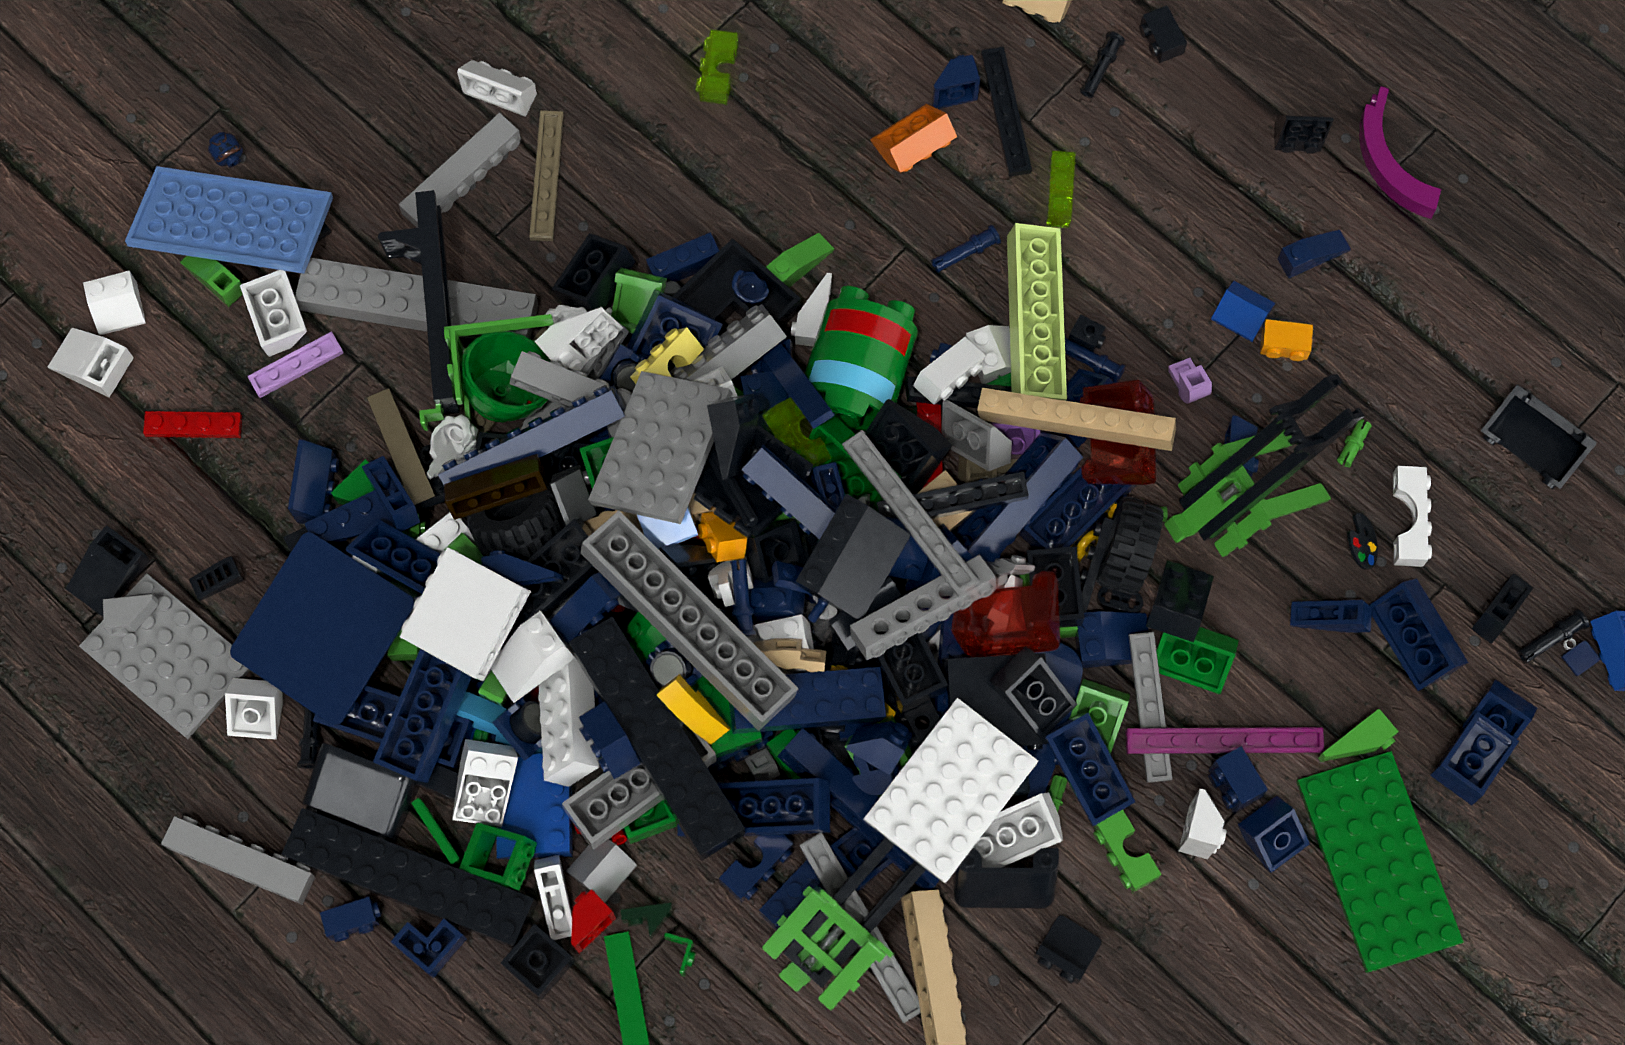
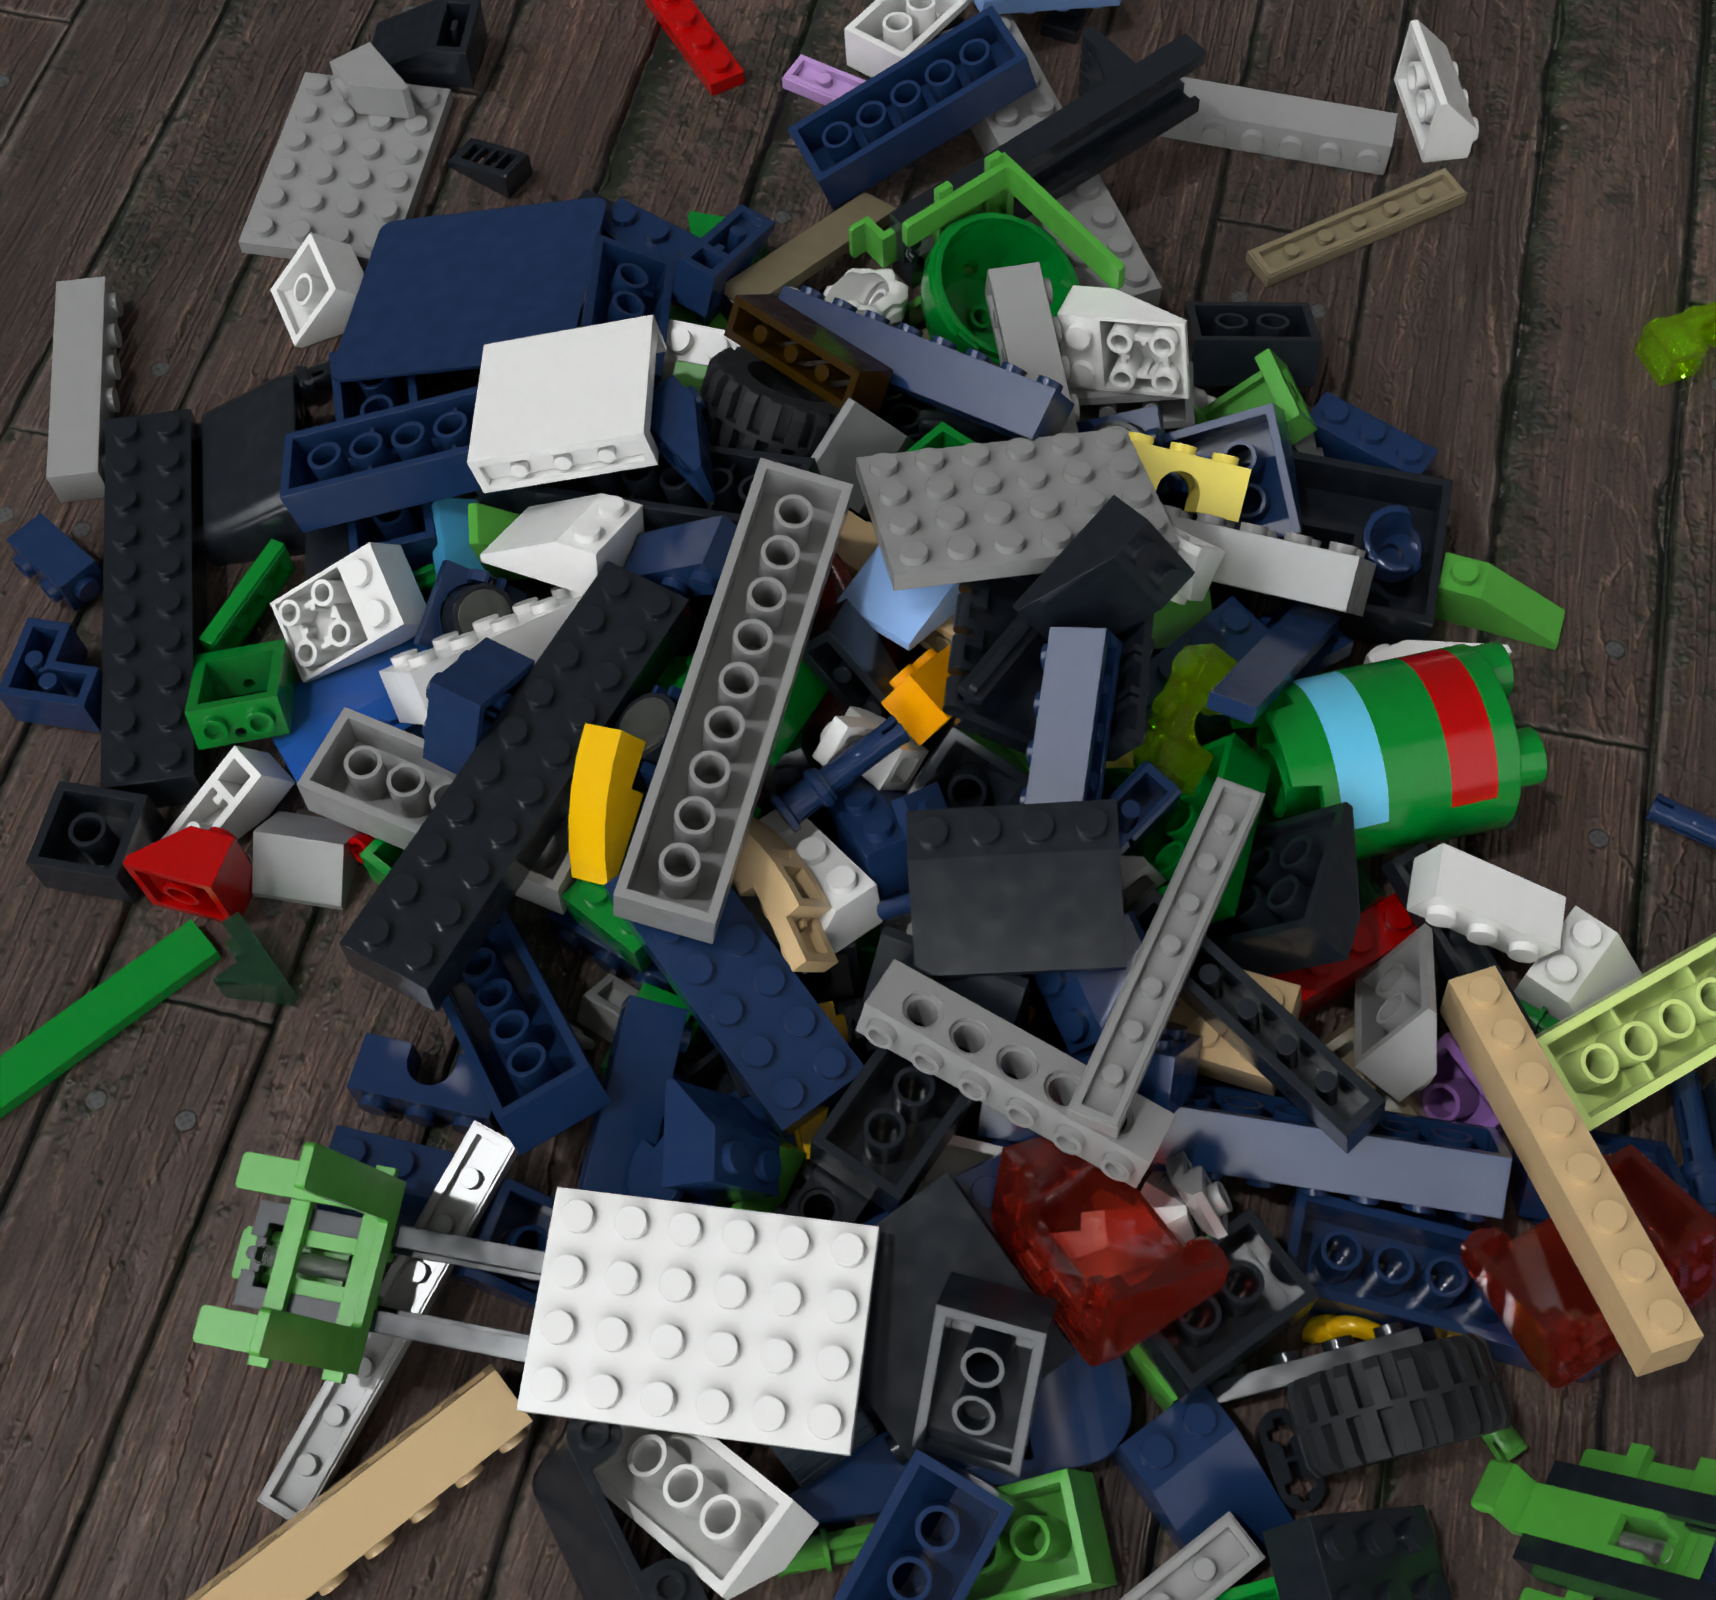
camera: 60 degrees right, 10 degrees down
(312, 481) = (693, 173): dark blue slope -> none
(344, 345) = (913, 106): none -> dark blue brick
(689, 954) = (216, 1062): green bracket -> none

